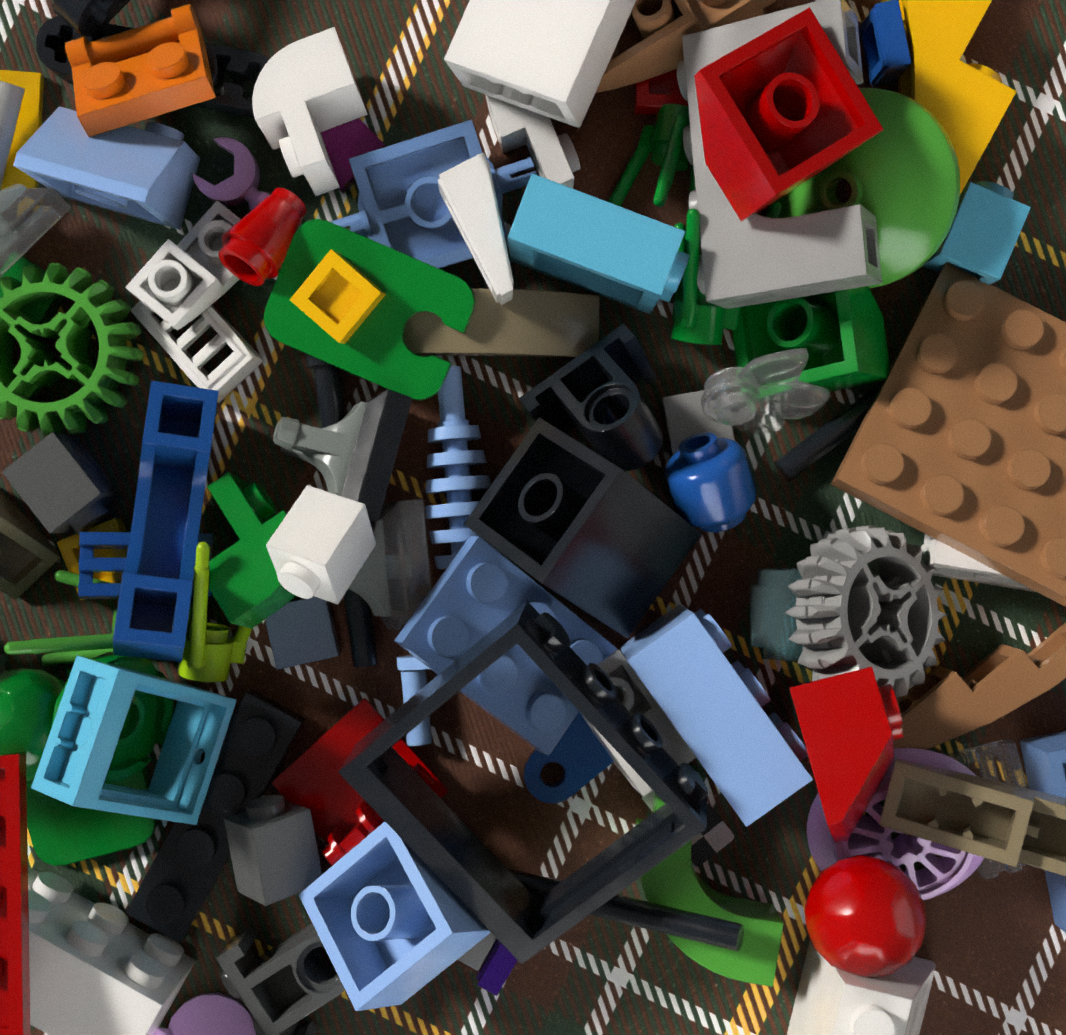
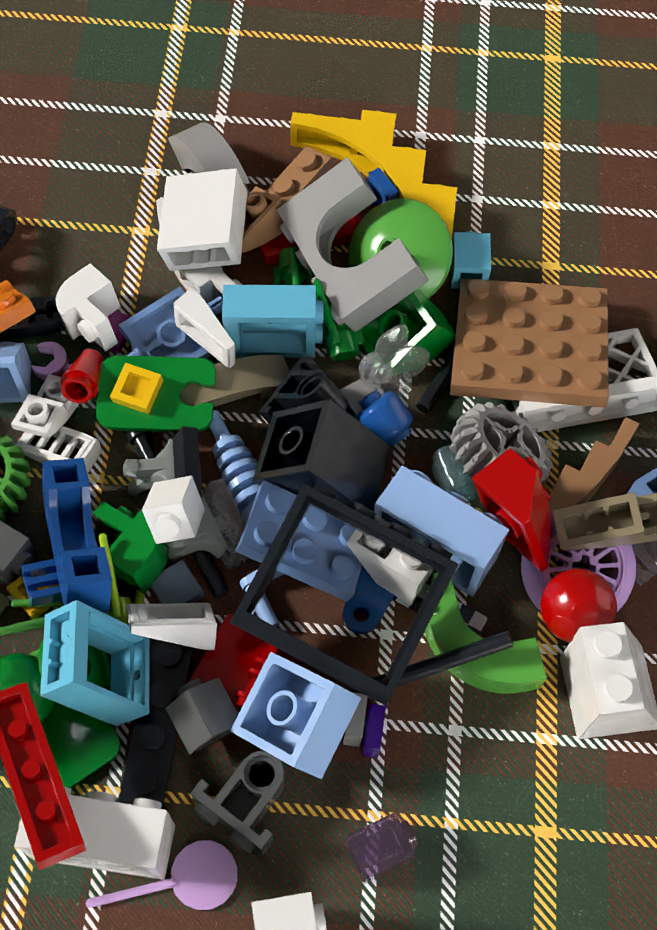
camera: 25 degrees left, 25 degrees down
(297, 688) = (175, 623): none -> white slope
(779, 113) = (340, 216): red slope -> none

